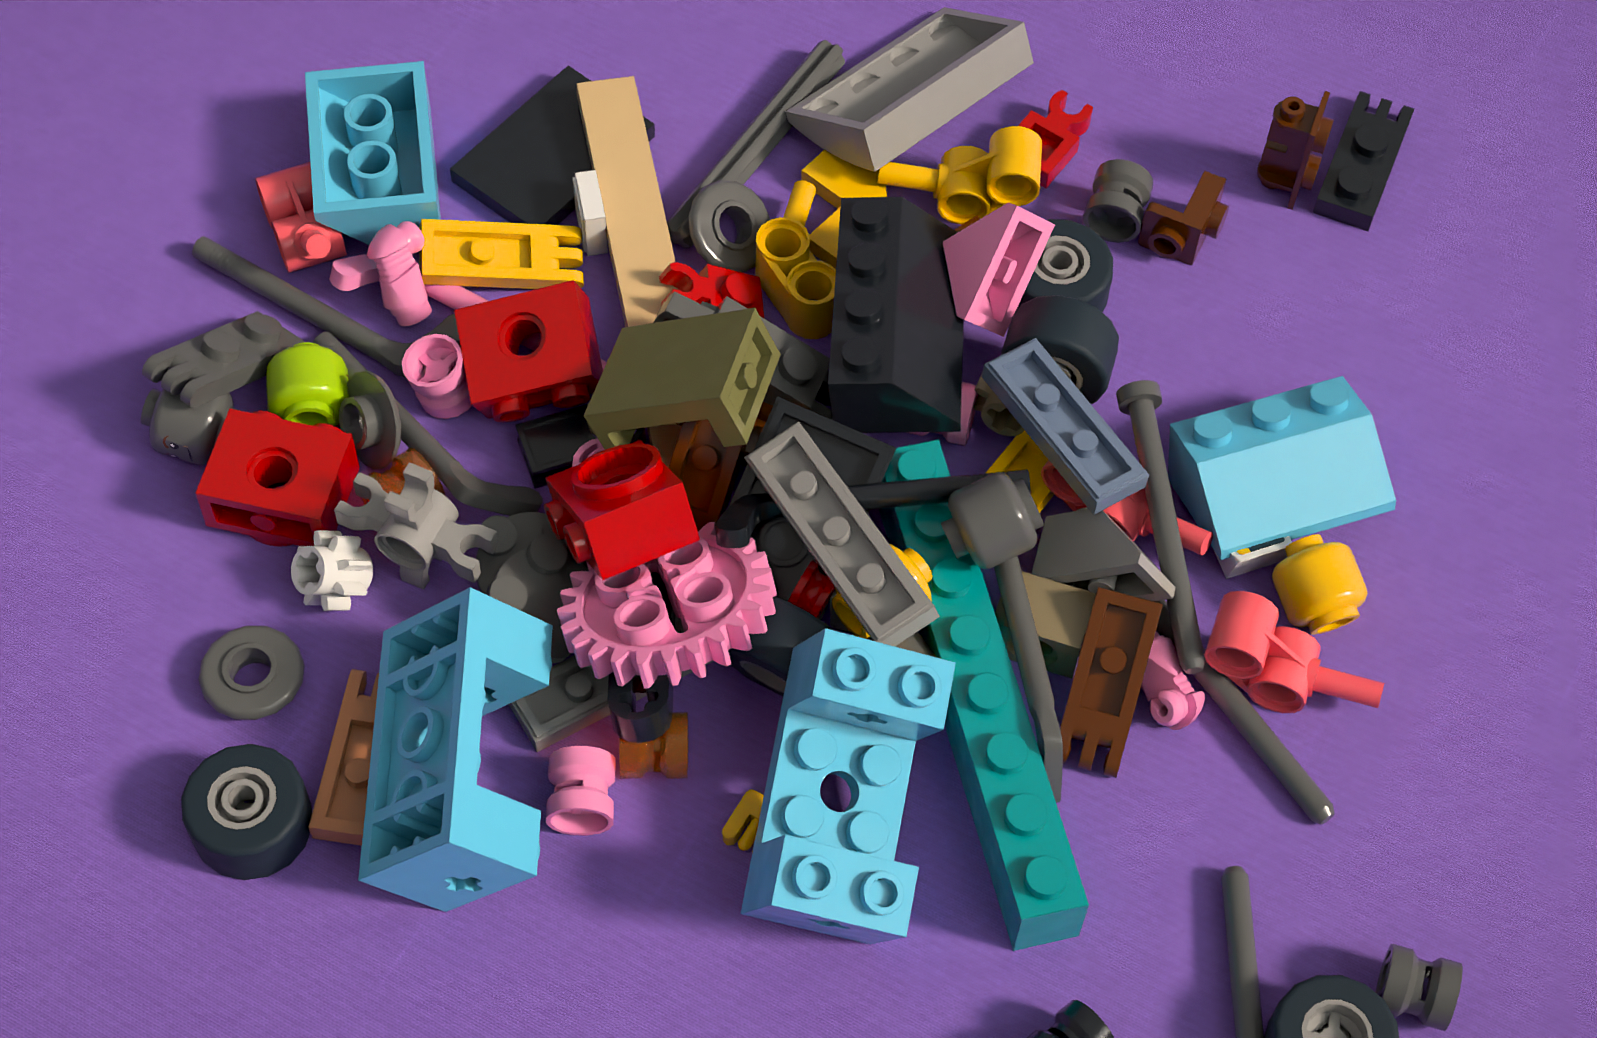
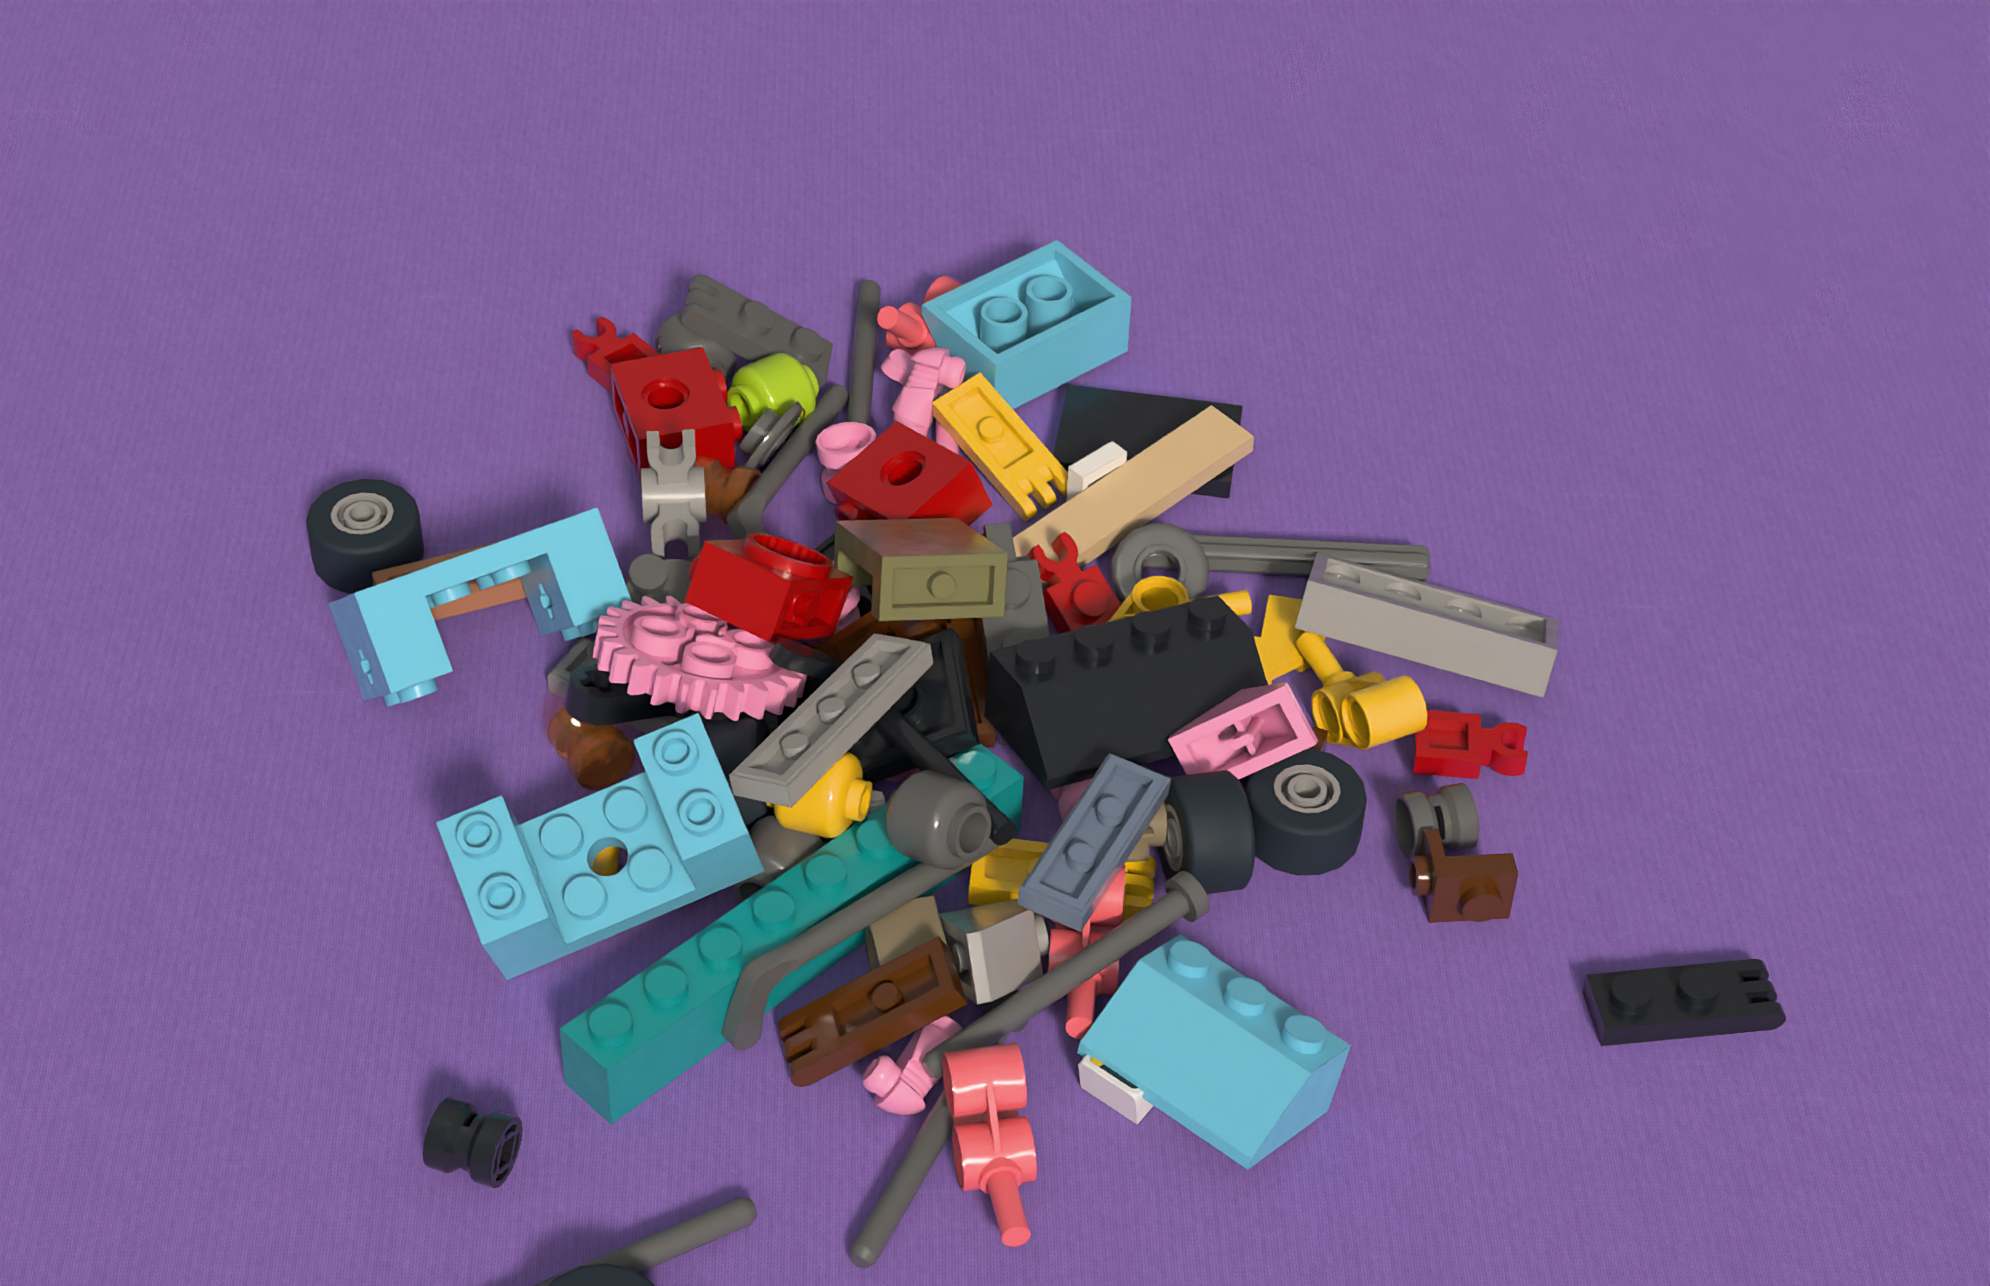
camera: 60 degrees right, 15 degrees down
(157, 488) = (608, 349): none -> red plate
(242, 648) = (488, 473): dark grey piece -> none
(332, 570) = (612, 482): white gear -> none
(580, 790) = (516, 717): bright pink wheel -> none
(1292, 137) = (1613, 913): reddish brown hinge -> none
(1319, 584) = (1110, 1142): yellow head -> none

